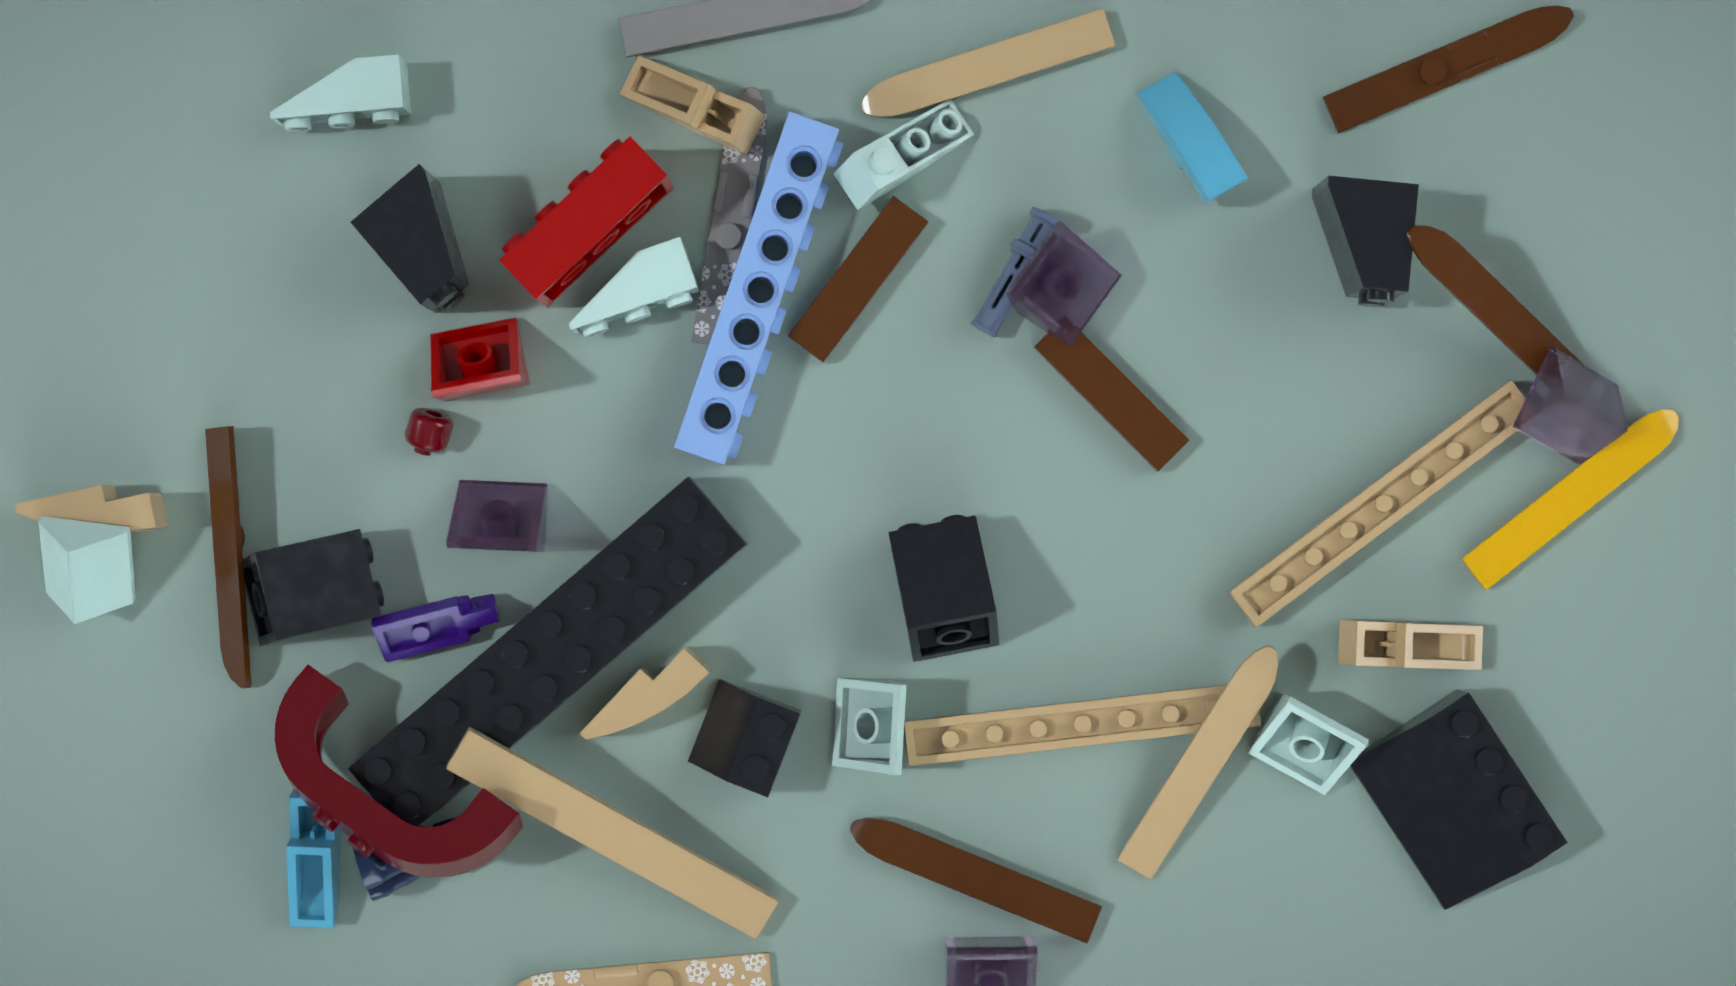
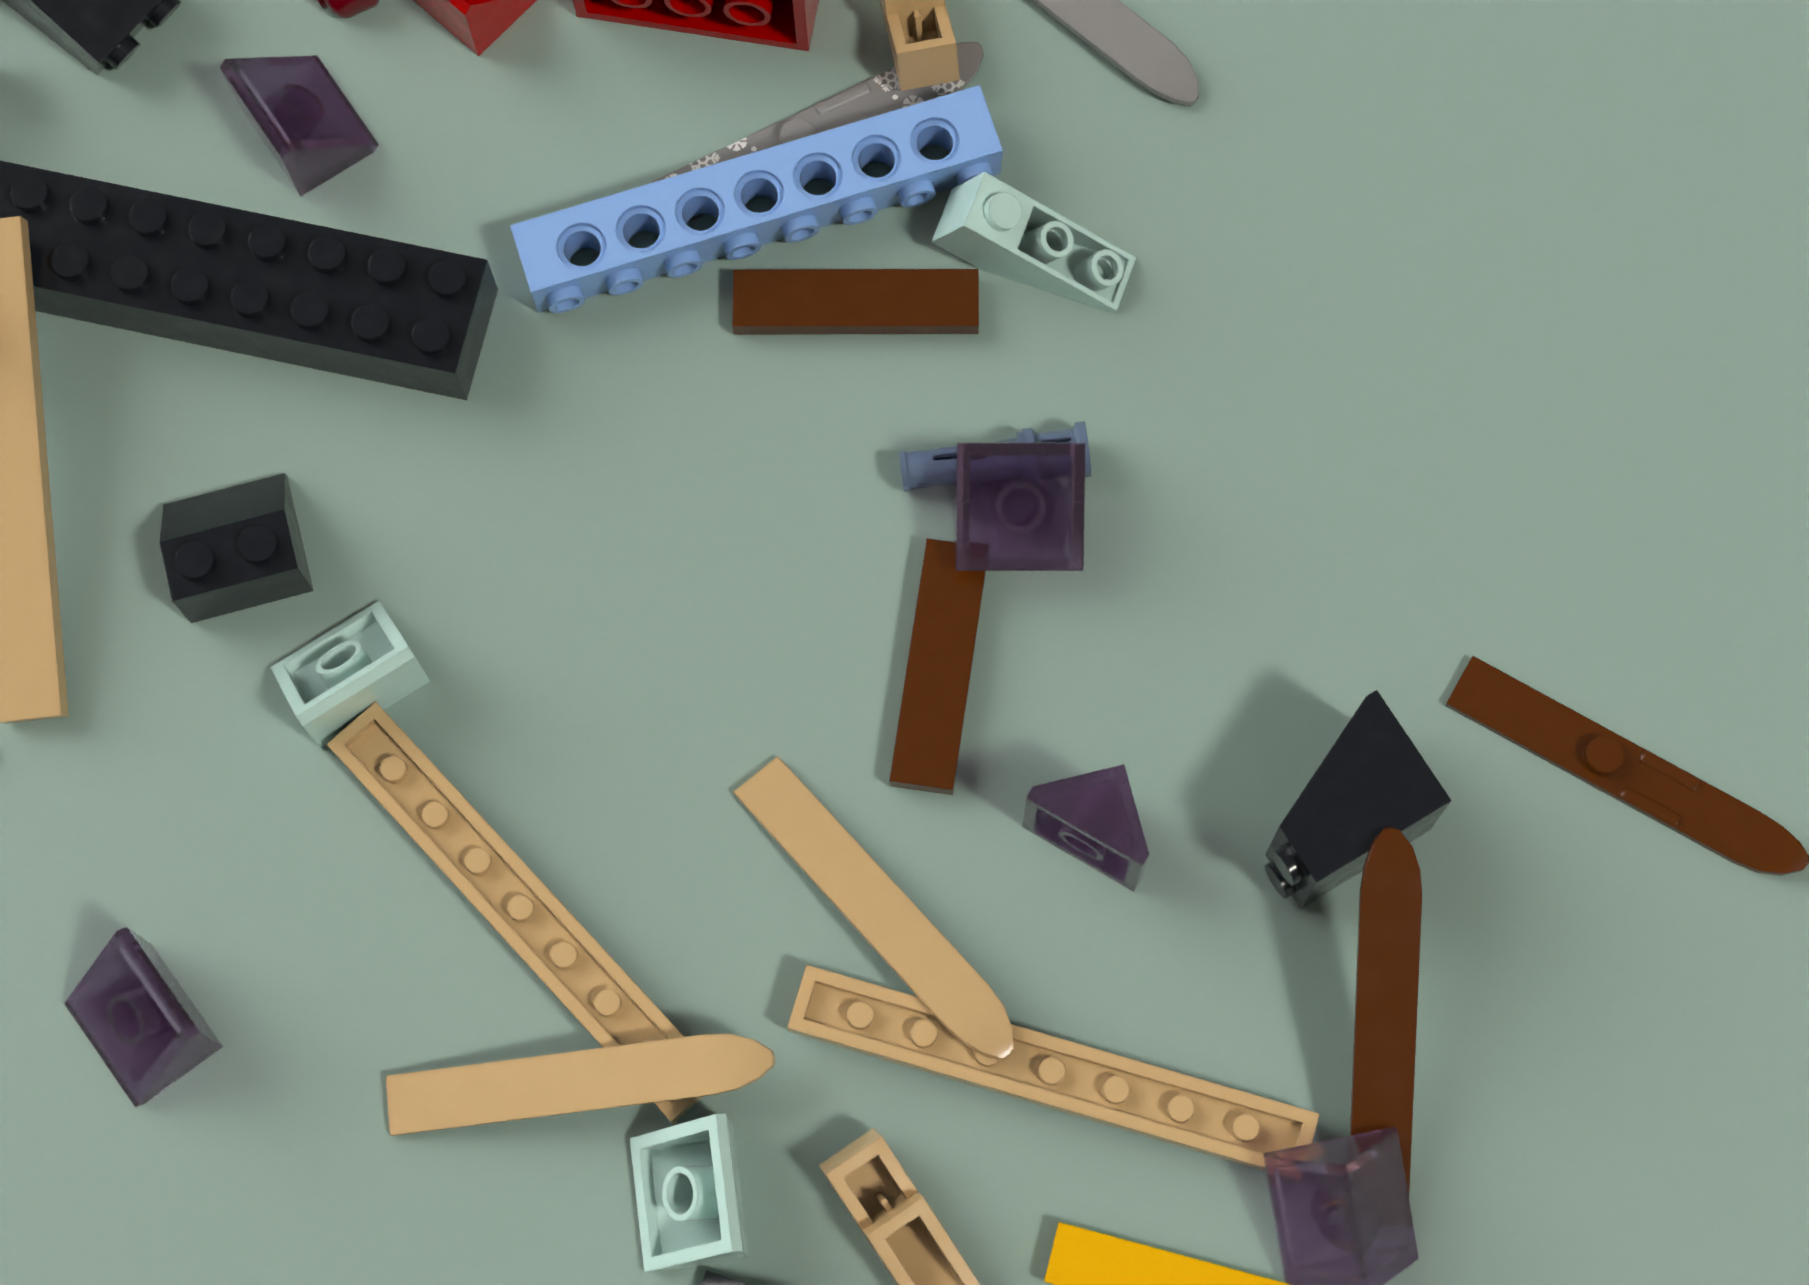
camera: 60 degrees right, 15 degrees down
(433, 625) = (128, 131): dark purple hinge -> none
(646, 281) = (675, 80): light aqua slope -> none
(648, 695) = (210, 403): tan slope -> none
(944, 587) = (565, 634): black slope -> none
(977, 877) = (249, 929): reddish brown piece -> none
(990, 65) = (1208, 272): tan piece -> none
(1192, 138) = (1301, 540): medium azure slope -> none
(1224, 530) = (878, 909): none -> tan piece
(1272, 376) = (1092, 821): none -> clear purple slope

